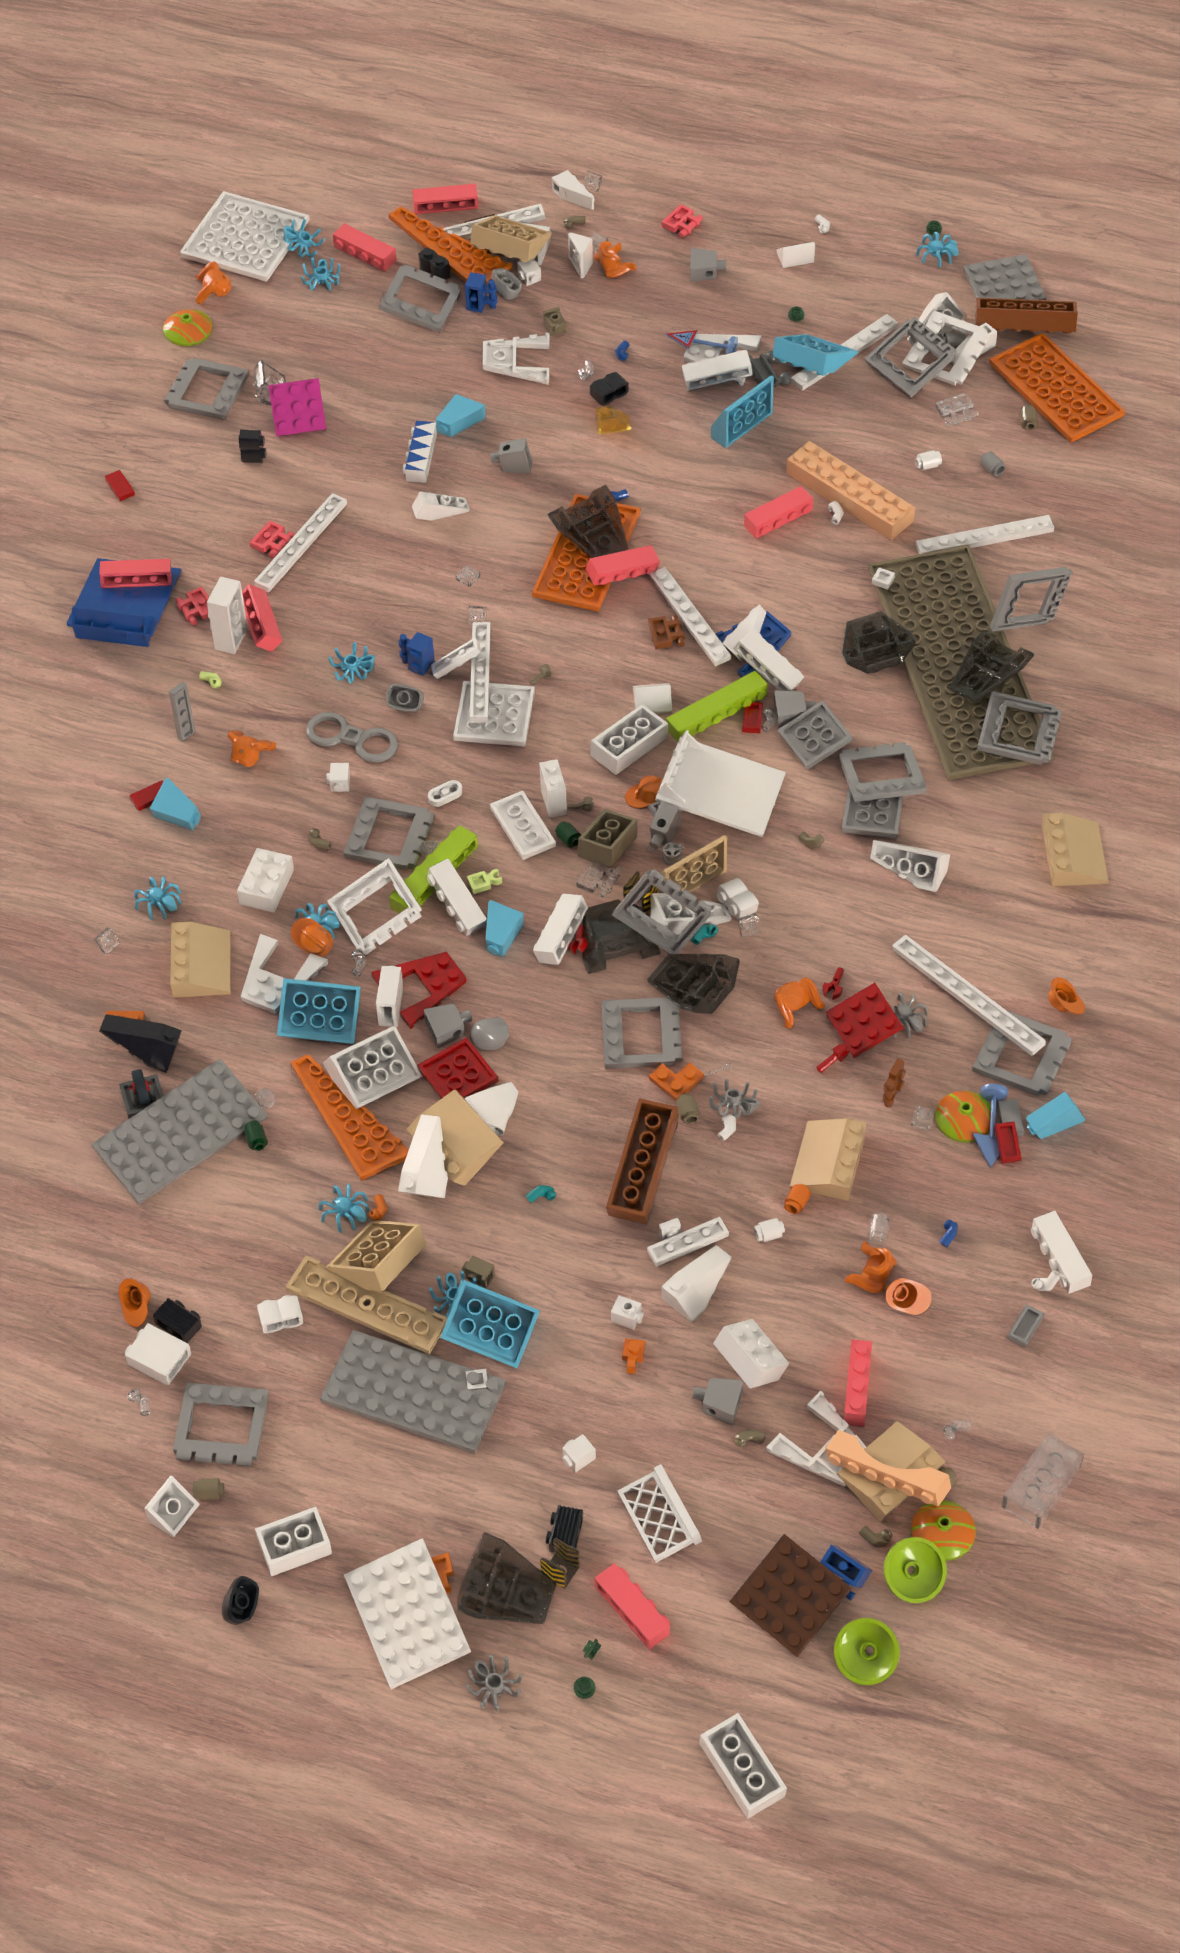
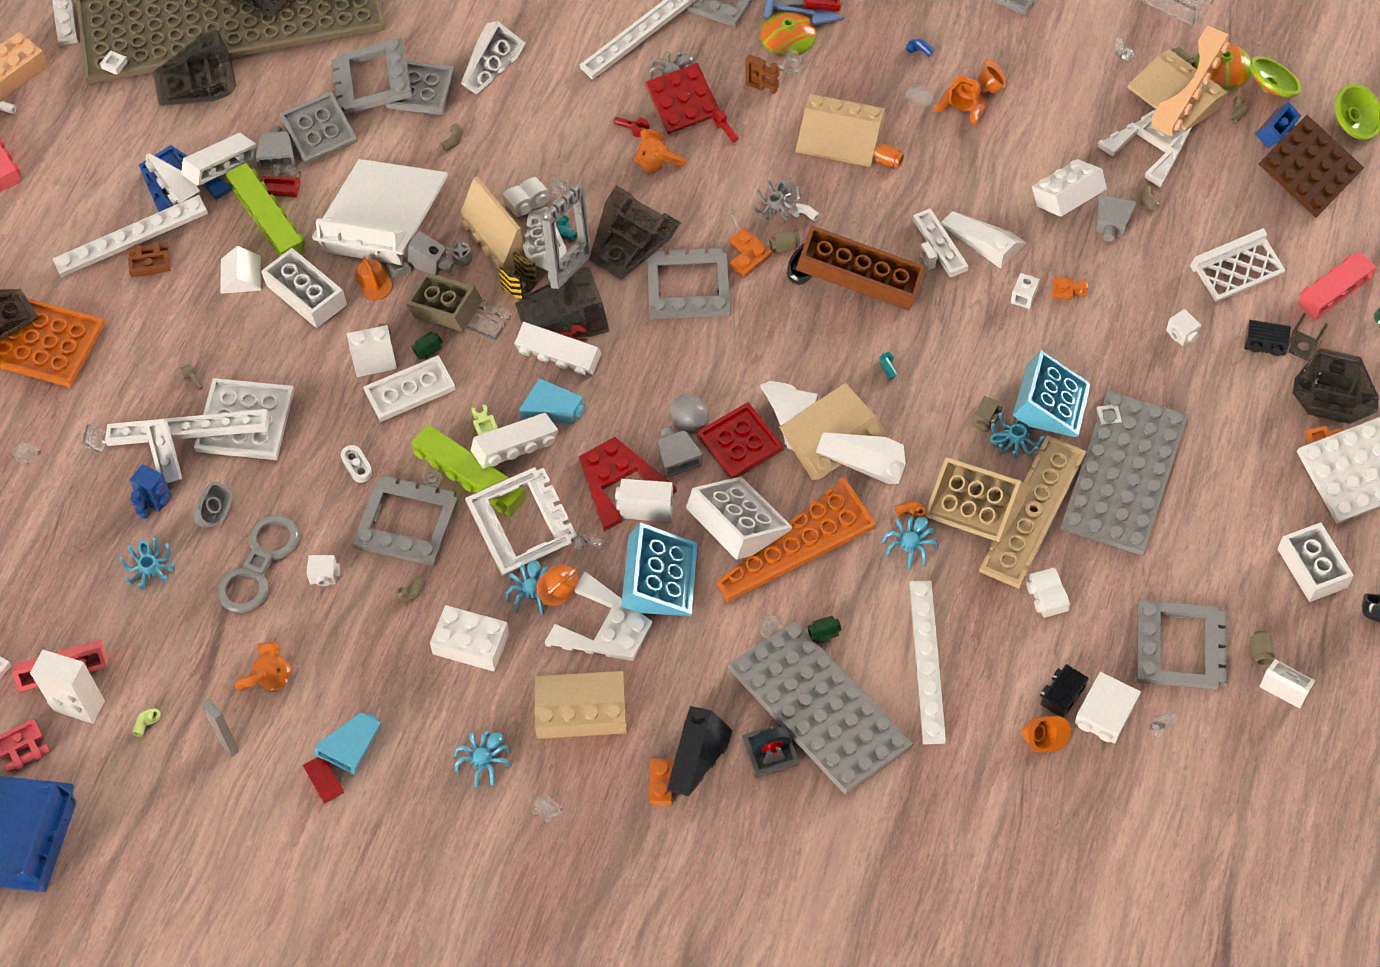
camera: 90 degrees left, 5 degrees up
(220, 1217) = (927, 663): none -> white plate
(622, 565) = (50, 291): coral brick -> none
(769, 1230) = (925, 178): white brick -> none
(857, 1382) = (1087, 114): coral brick -> none

